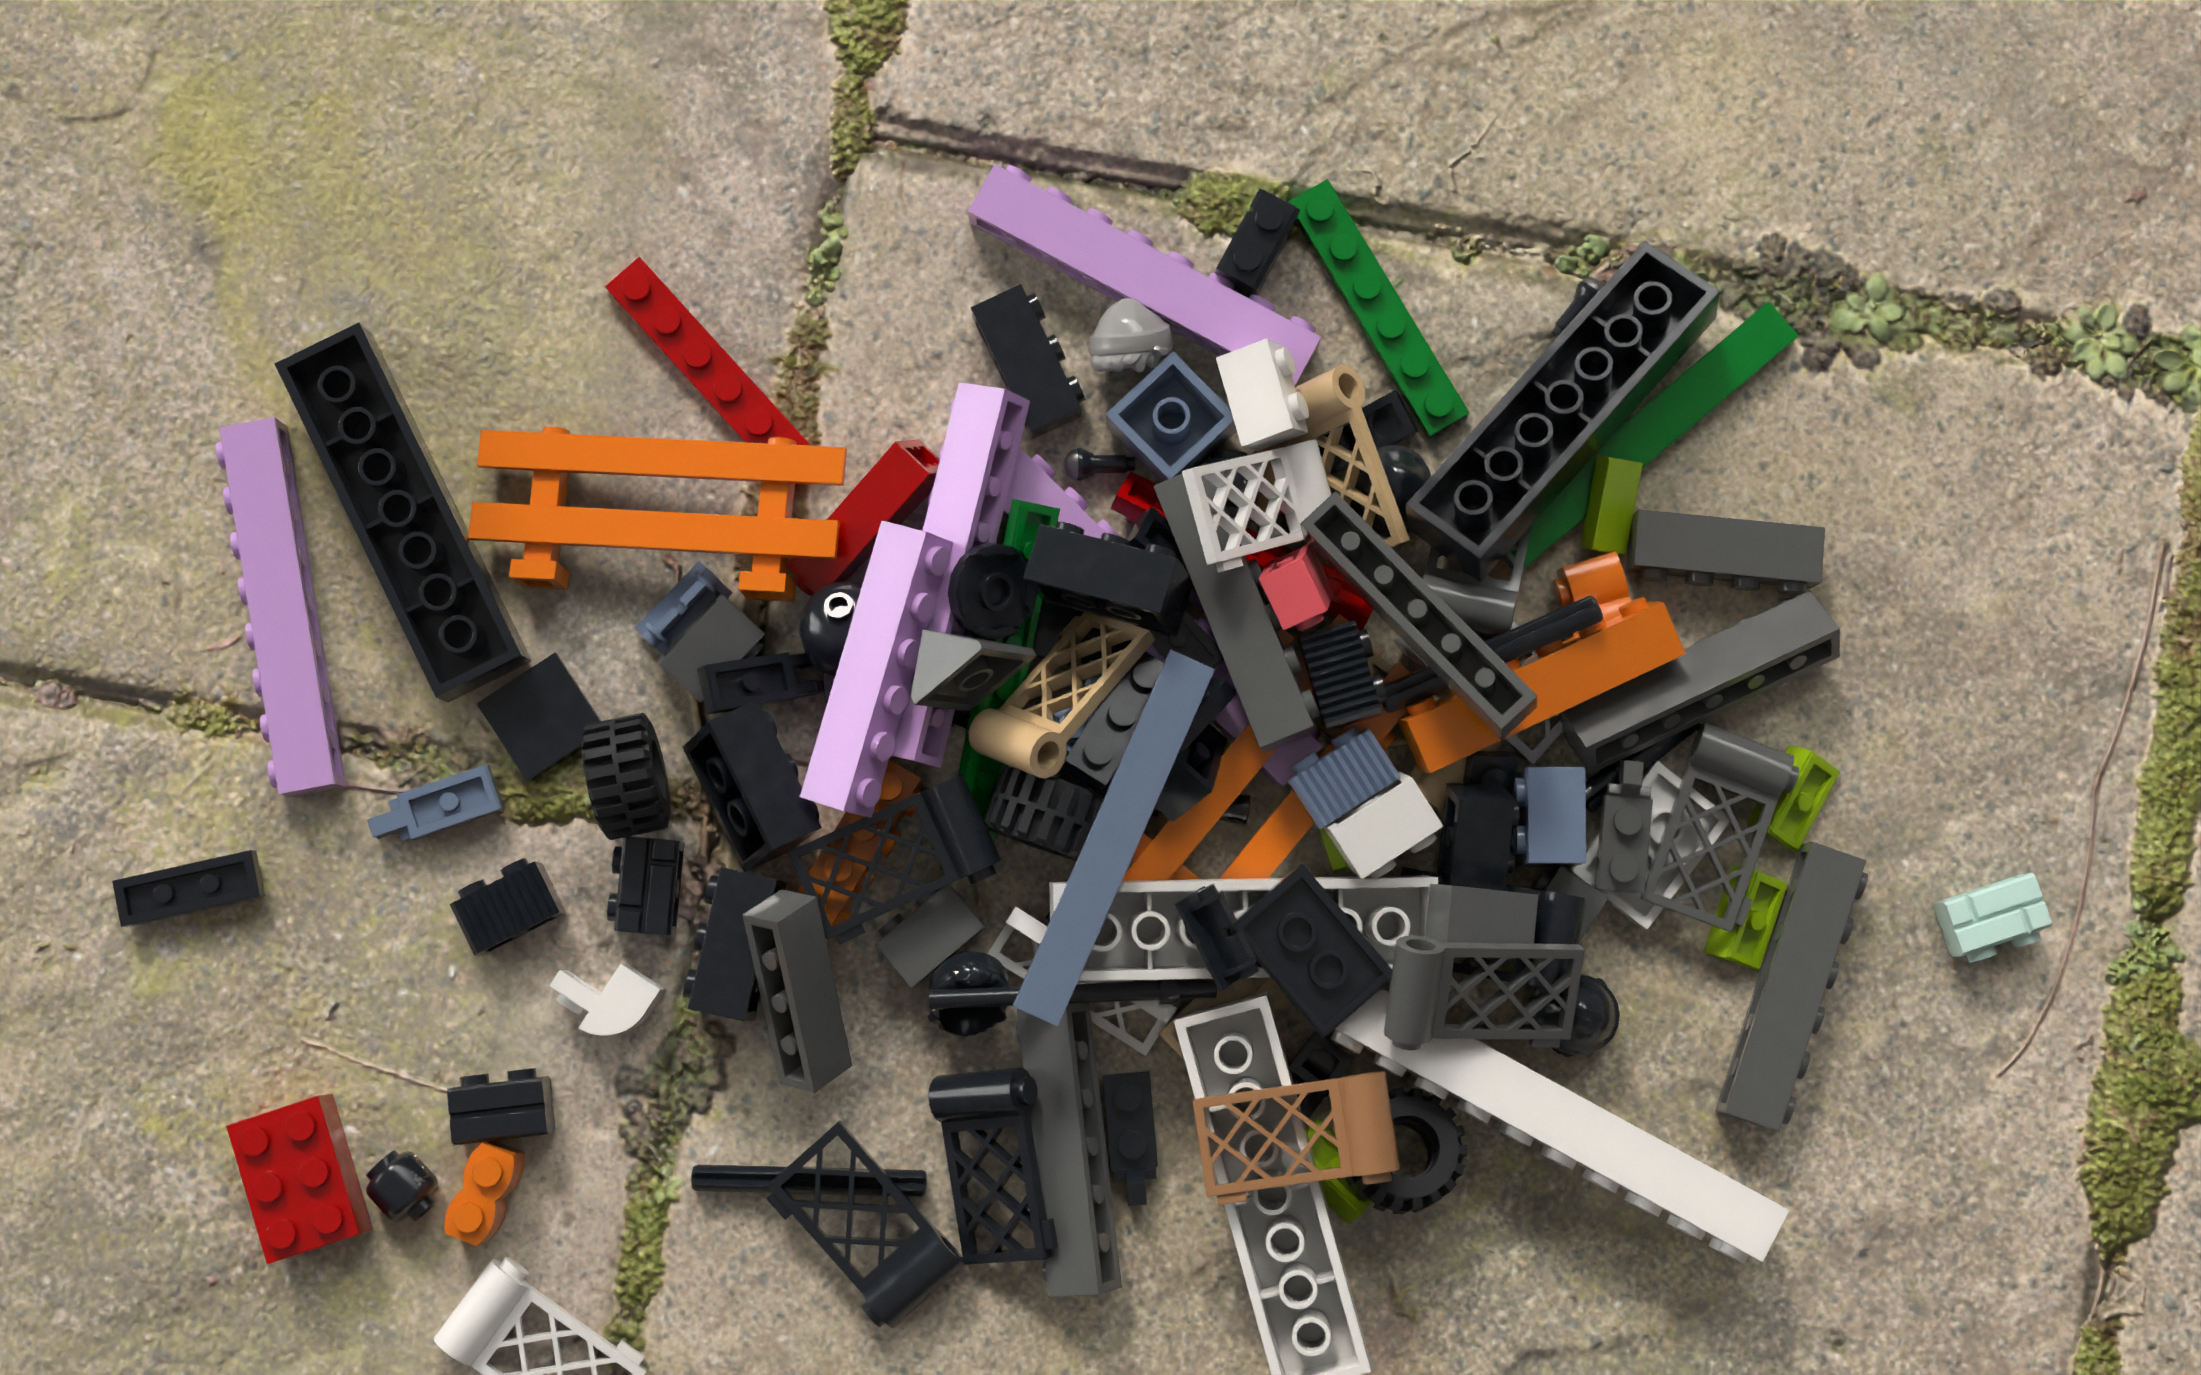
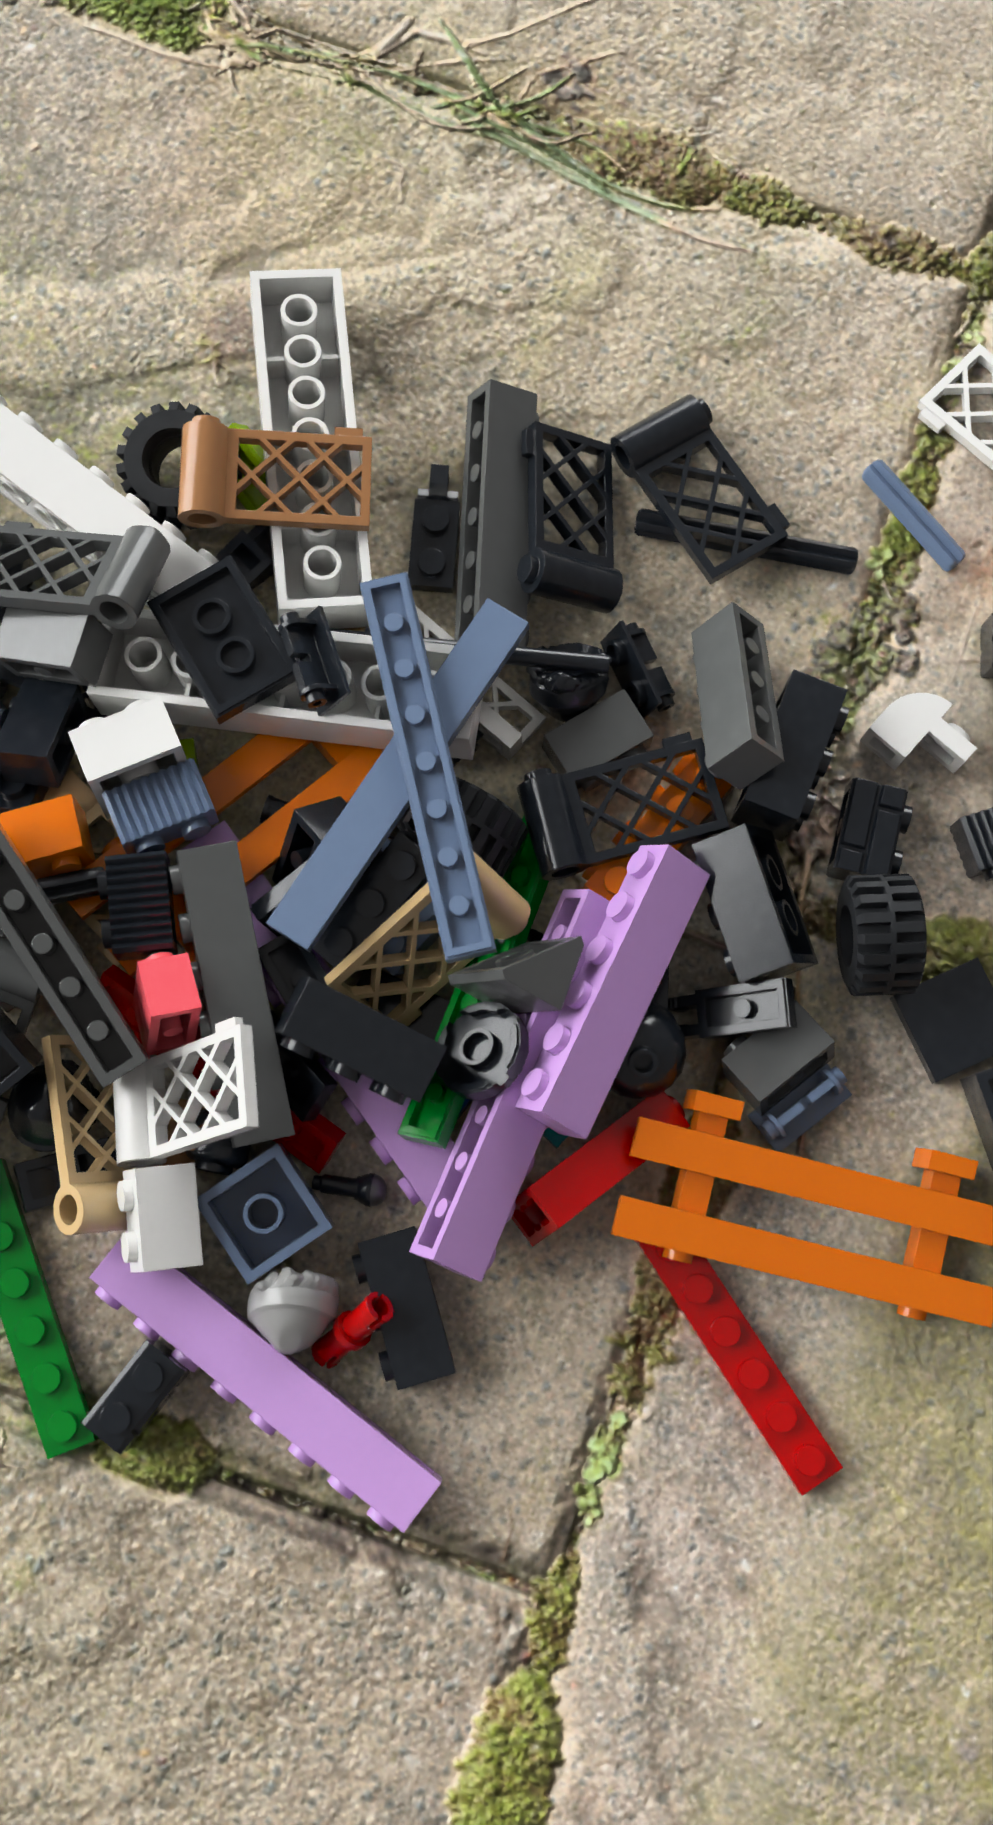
camera: 175 degrees left, 5 degrees down
(638, 1240) = (913, 515): none -> sand blue axle
(891, 999) = (629, 654): none -> black hinge
(1070, 330) = (352, 1330): none -> red pin
(1088, 845) = (427, 769): none -> sand blue tile

